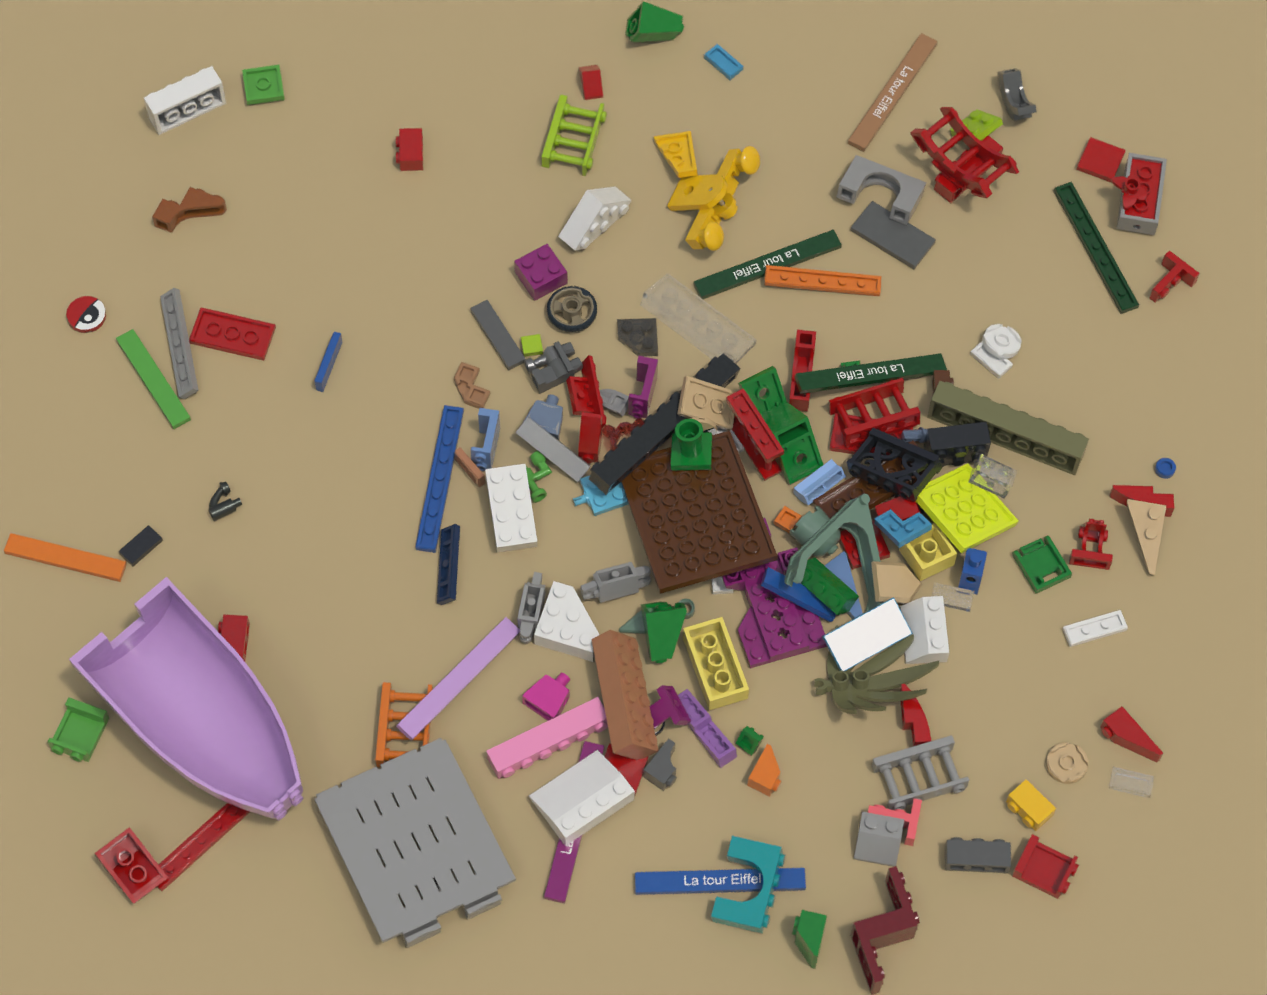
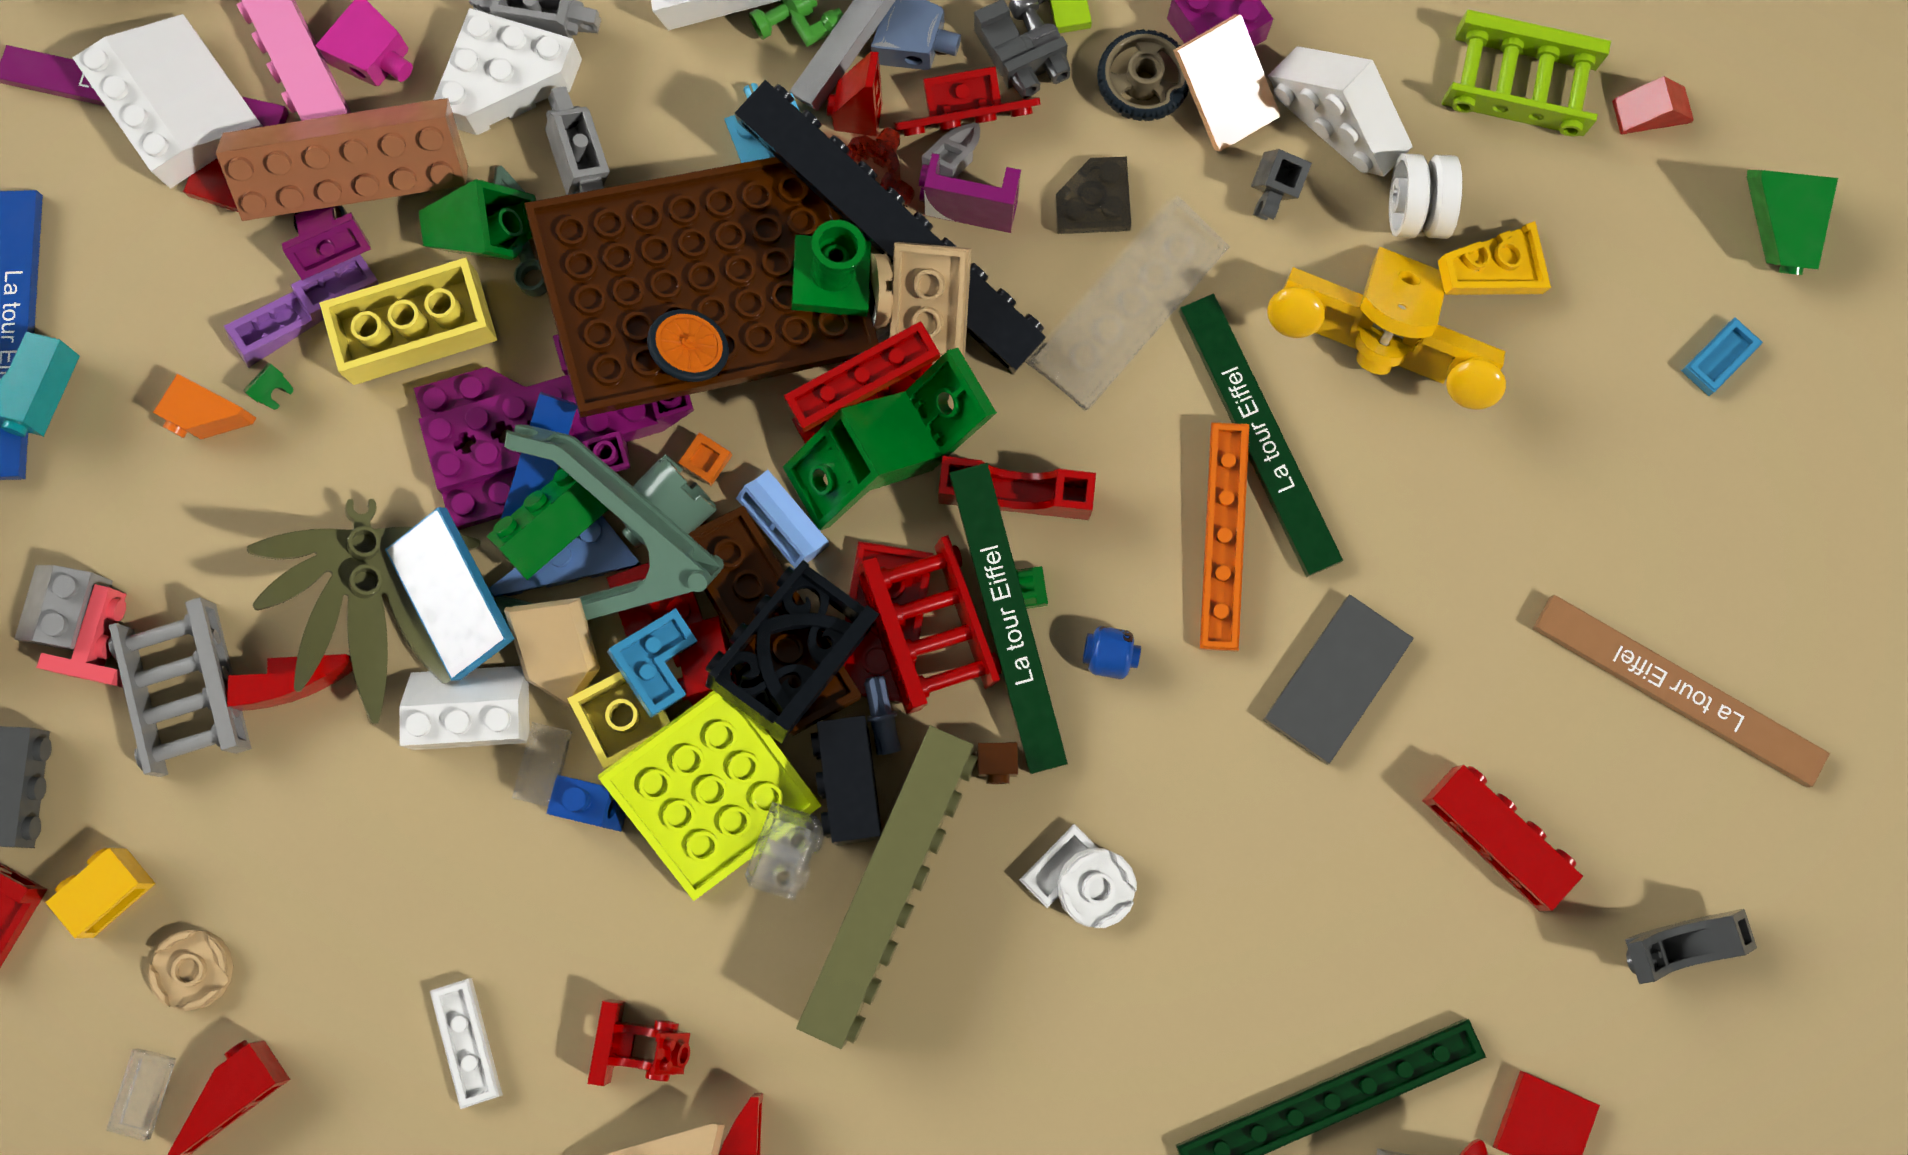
camera: 90 degrees right, 15 degrees up
(581, 267) = (1227, 82): none -> tile
(633, 246) = (1280, 178): none -> dark grey brick
(645, 180) = (1425, 196): none -> white wheel
(660, 768) = (221, 234): dark grey arch -> none
(738, 508) = (688, 345): none -> orange wheel
(866, 173) = (1476, 622): light grey arch -> none
(884, 332) = (1111, 652): none -> blue head
(952, 170) = (1485, 795): red fence -> none
(981, 124) = (1602, 857): lime plate -> none
(1041, 561) = (612, 942): green container -> none

